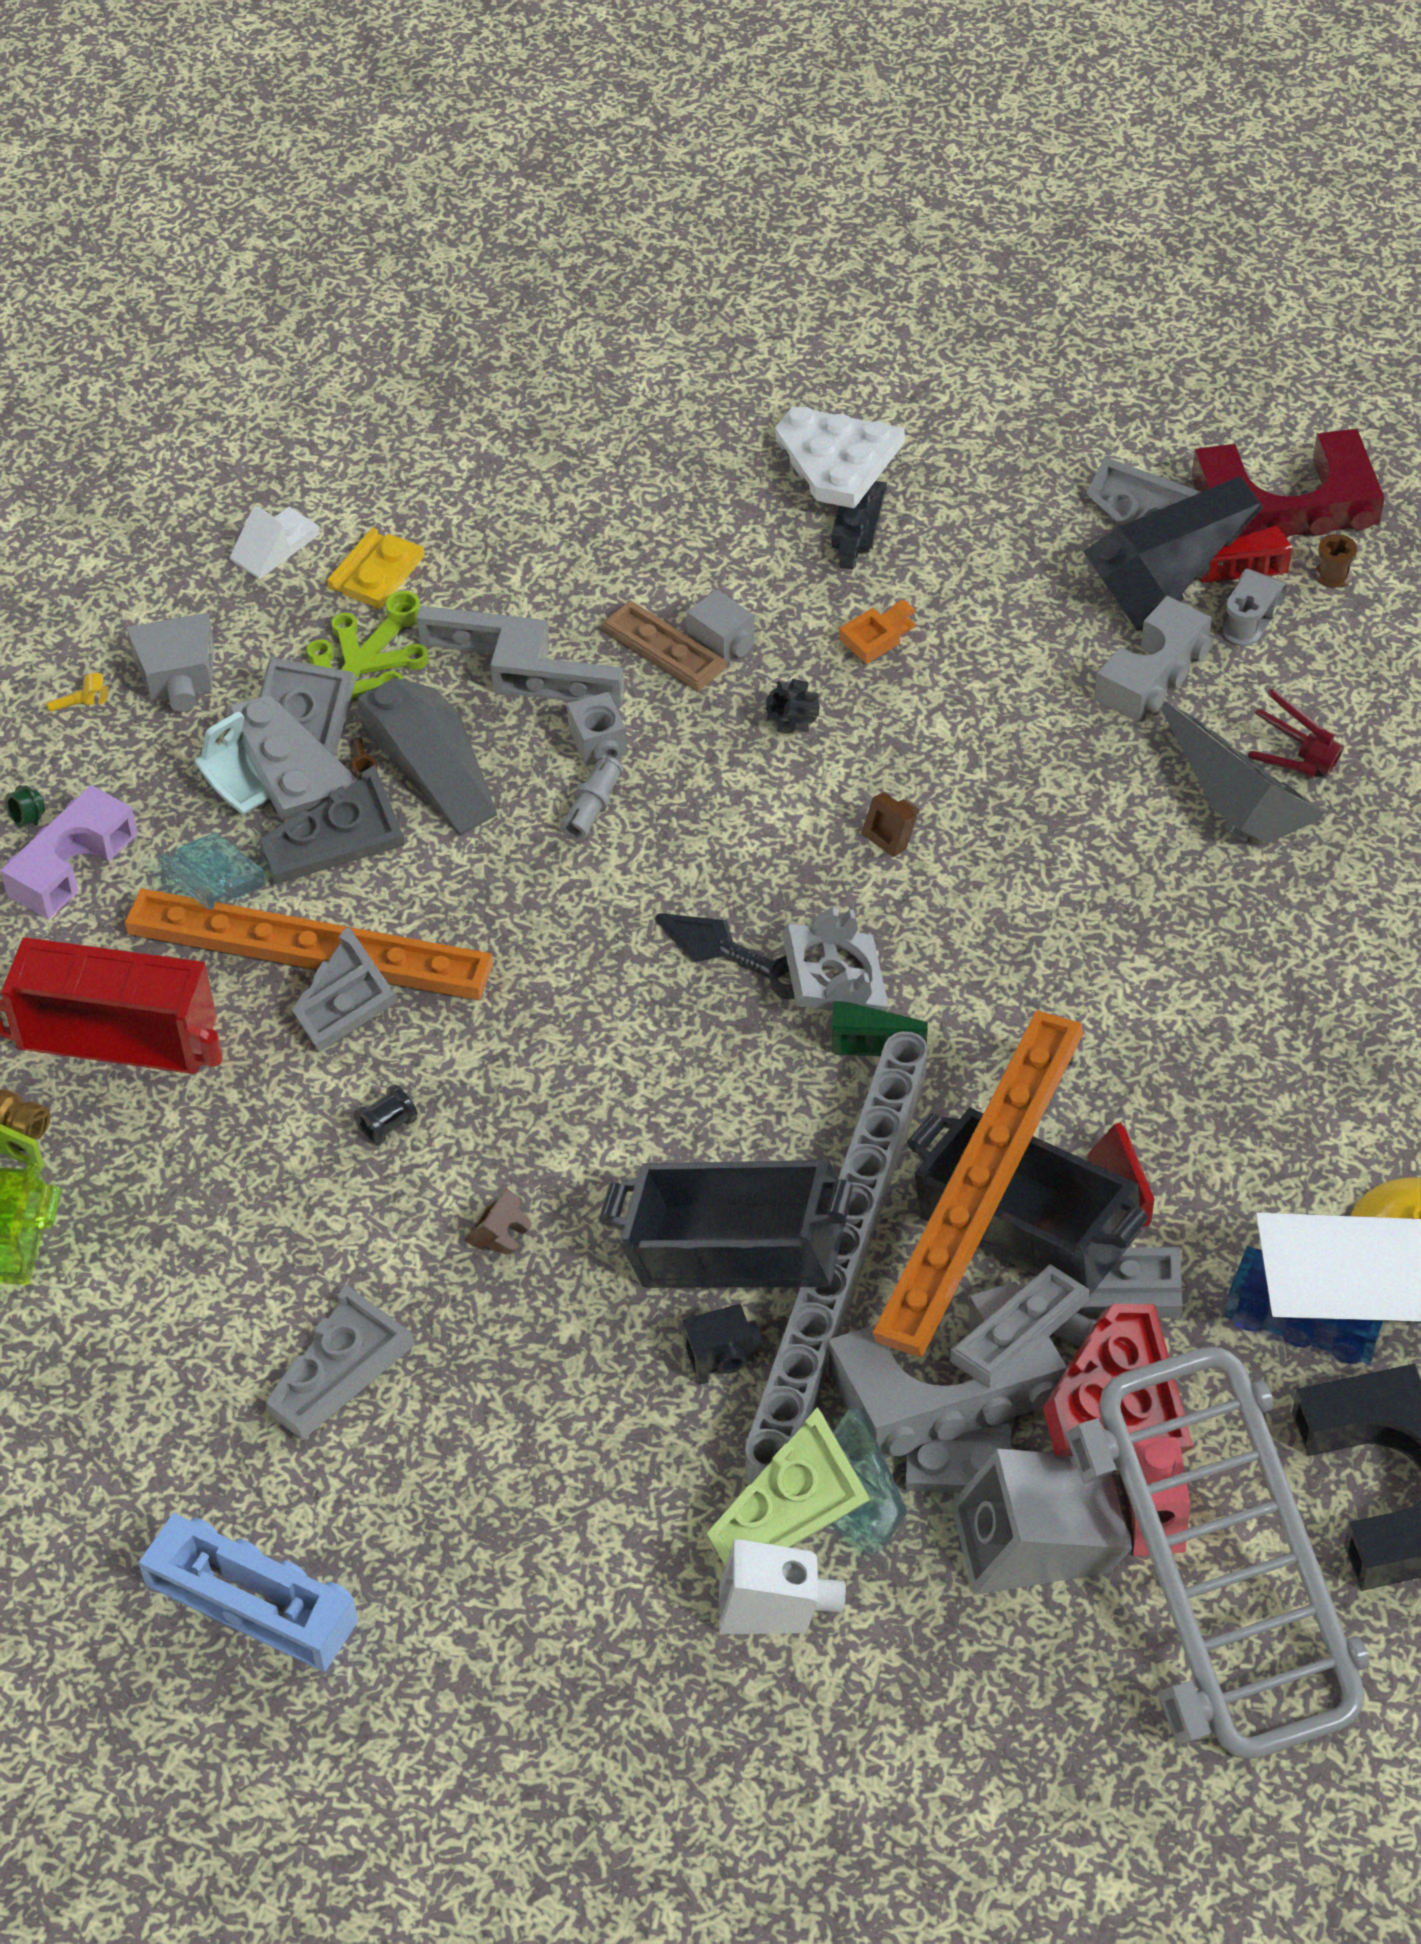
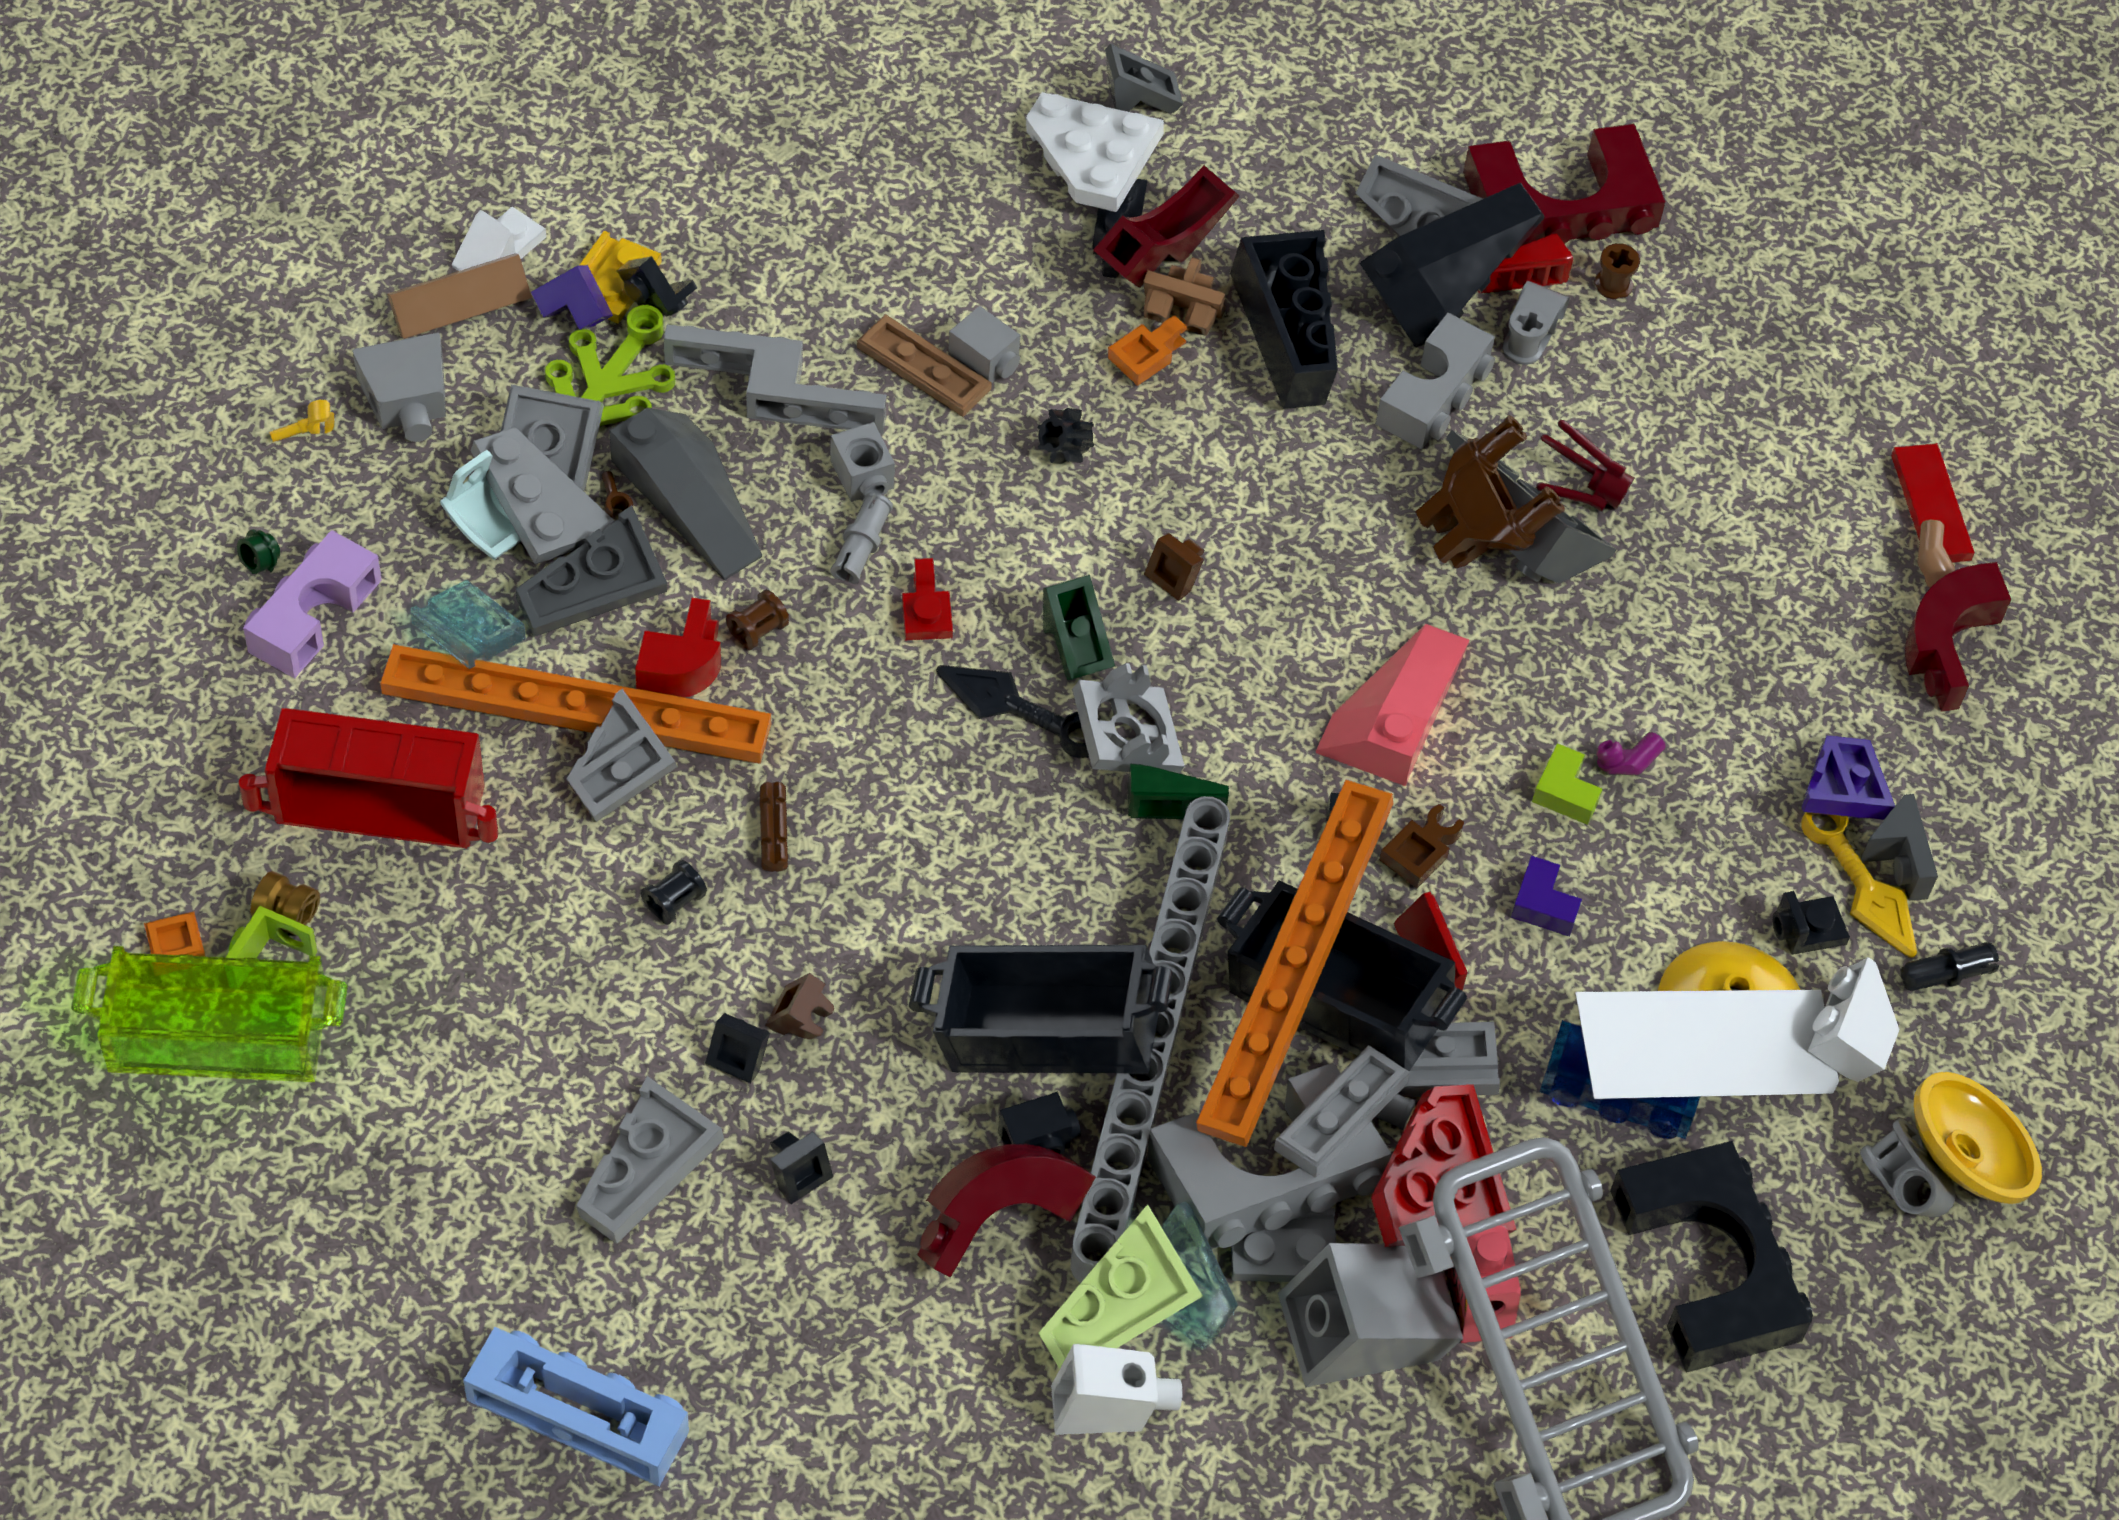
camera: 10 degrees left, 5 degrees up
(233, 582) = (459, 295): none -> medium nougat tile
(338, 579) = (575, 291): none -> dark purple piece
(407, 573) = (648, 286): none -> black bracket
(411, 907) = (681, 663): none -> red brick
(434, 1259) = (737, 1047): none -> black tile
(485, 1369) = (800, 1164): none -> black tile
(486, 869) = (757, 619): none -> reddish brown bush
(487, 1057) = (773, 827): none -> reddish brown axle
(649, 864) = (926, 611): none -> red plate
(671, 1385) = (994, 1181): none -> dark red arch
(791, 876) = (1077, 626): none -> dark green slope
(881, 393) = (1137, 80): none -> dark grey slope
(910, 520) = (1171, 228): none -> dark red arch
(916, 577) = (1187, 290): none -> medium nougat hips
(1013, 594) = (1289, 309): none -> black wedge
(1100, 957) = (1395, 709): none -> coral wedge
(1116, 1087) = (1419, 850): none -> reddish brown plate
(1184, 768) = (1481, 504): none -> reddish brown connector
(1232, 1136) = (1541, 904): none -> dark purple piece
(1261, 1033) = (1562, 790): none -> lime piece
(1330, 1008) = (1634, 761): none -> magenta arm

